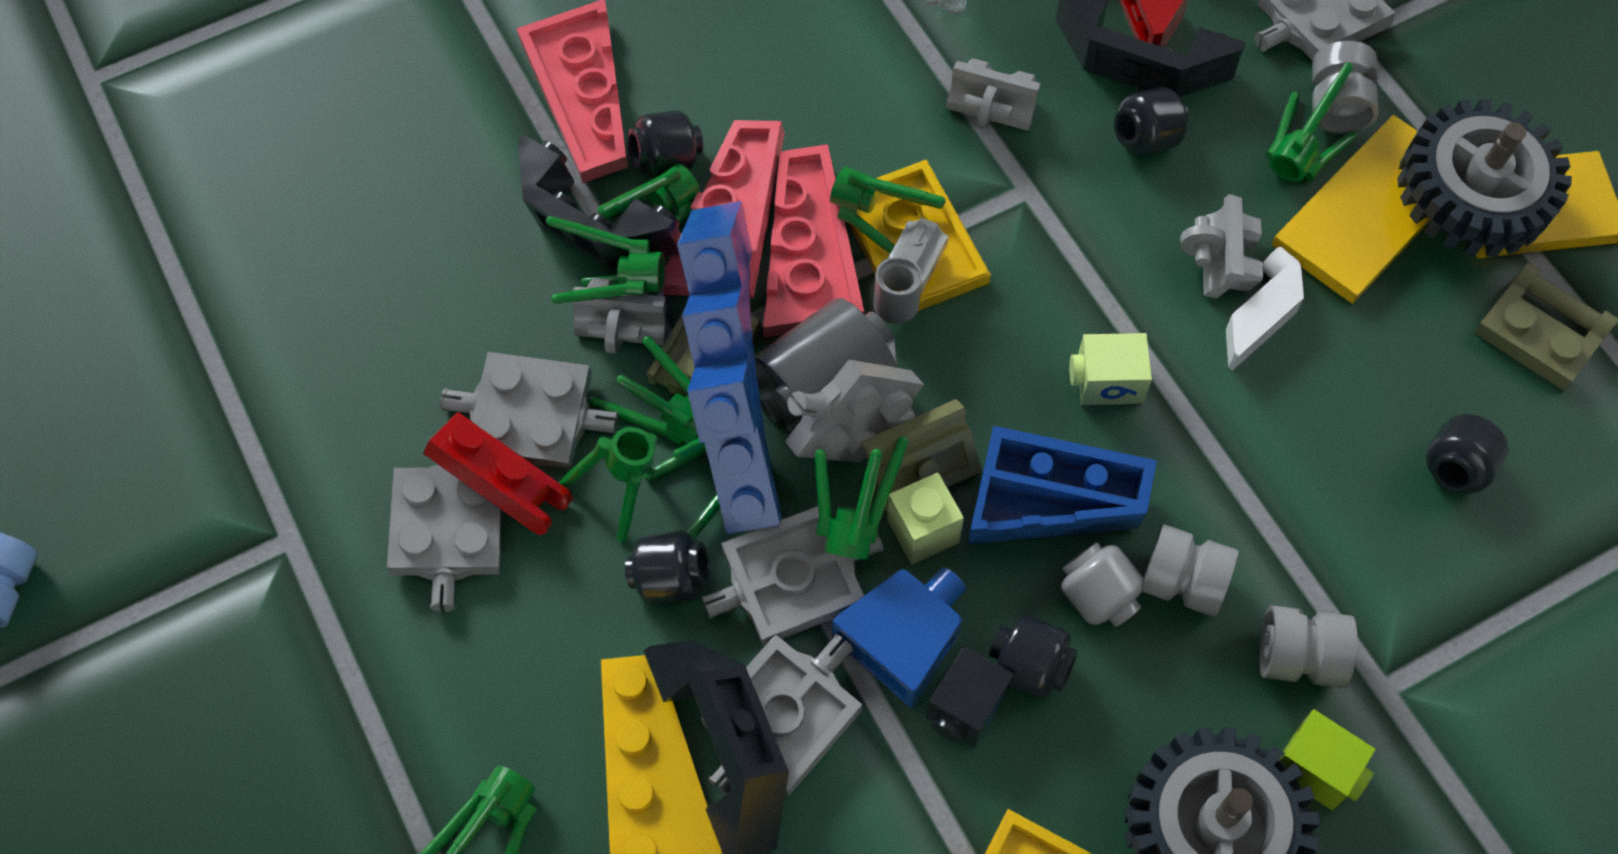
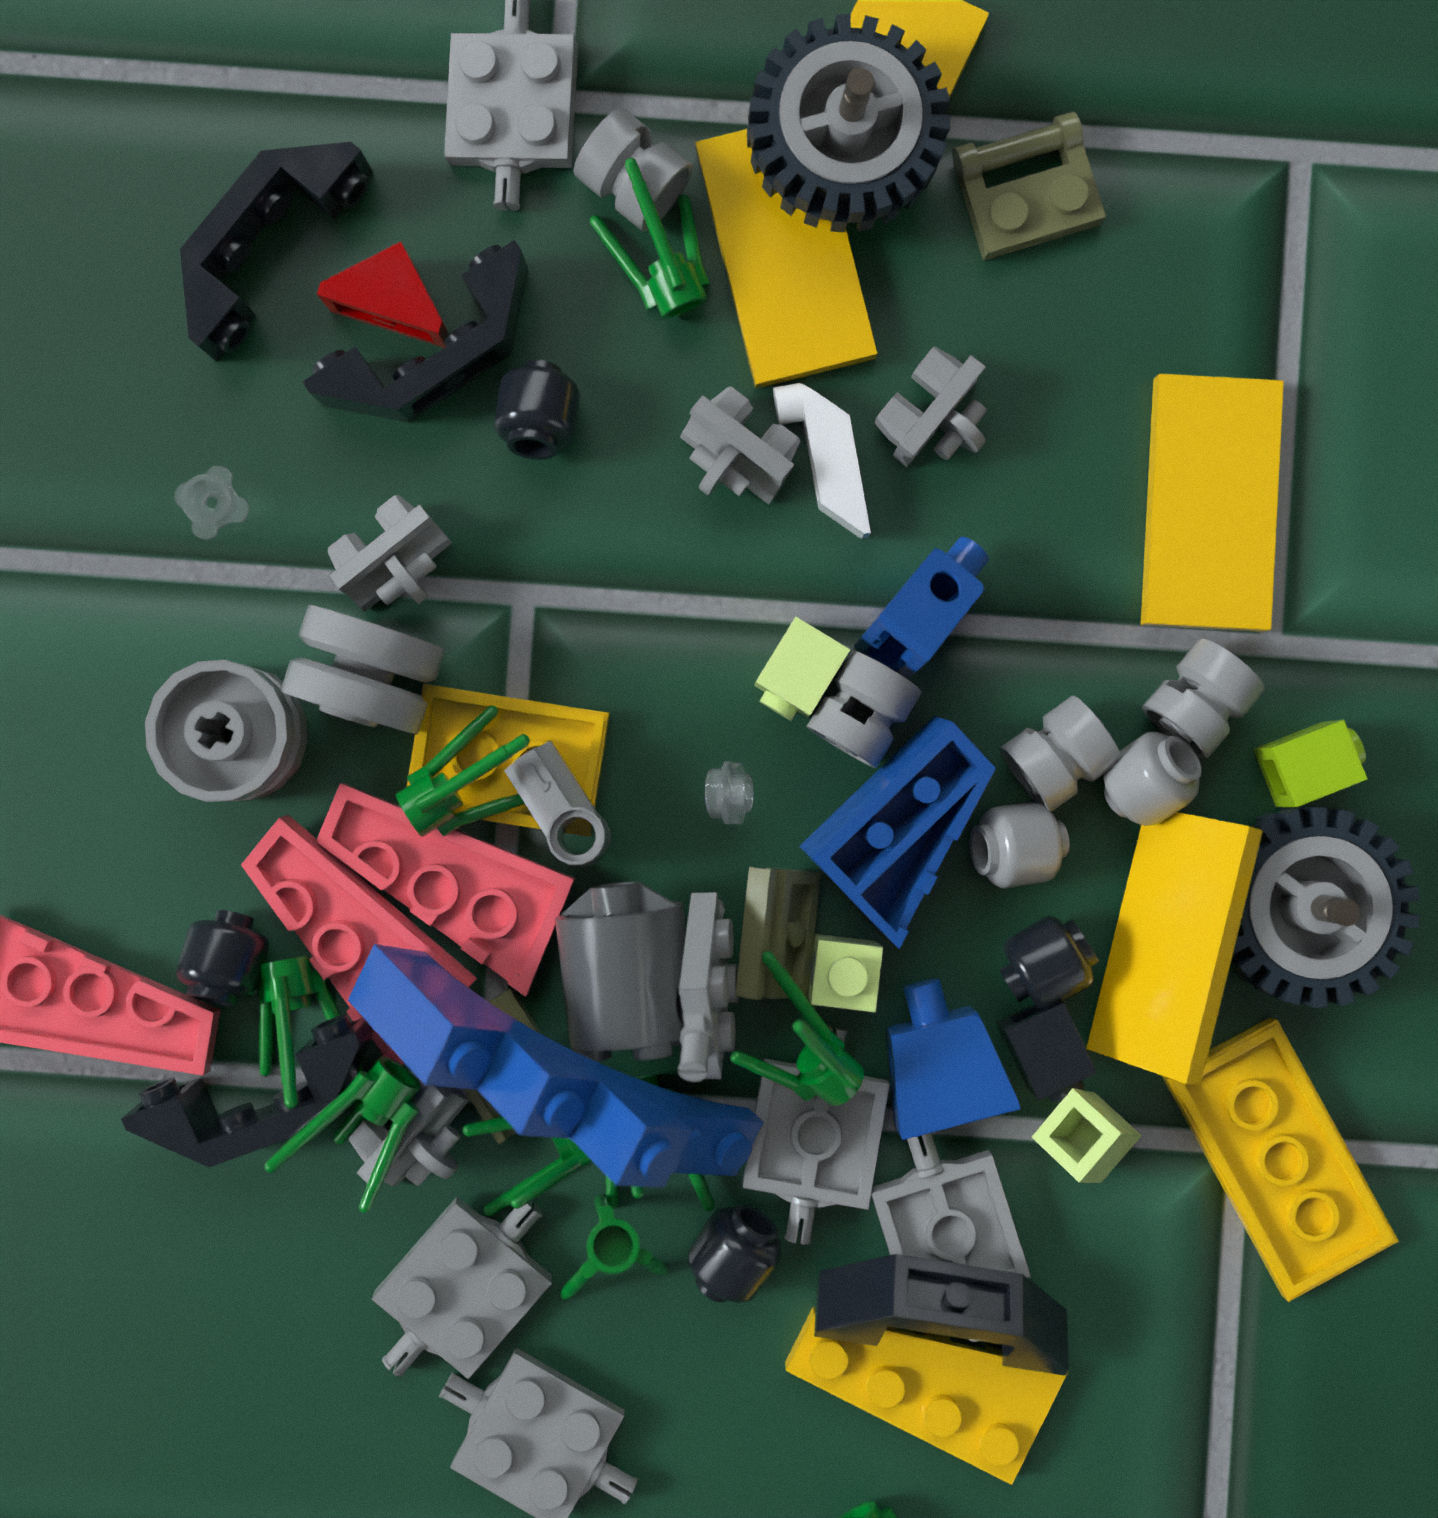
camera: 60 degrees left, 25 degrees up
(496, 472) = (522, 1371): red hinge -> none
(815, 65) = (190, 723): none -> light grey wheel
(913, 106) = (362, 670): none -> light grey wheel
(925, 759) = (1086, 1136): none -> yellowish green brick
(993, 374) = (729, 793): none -> clear plate
(1117, 730) = (1174, 945): none -> yellow tile
(1119, 421) = (875, 690): none -> light grey wheel
(1213, 414) = (926, 608): none -> blue torso
(1222, 642) = (1153, 778): none -> light grey head
(1351, 355) = (949, 383): none -> light grey hips
(1446, 577) = (1212, 502): none -> yellow tile
(1467, 453) = (1115, 388): black head -> none

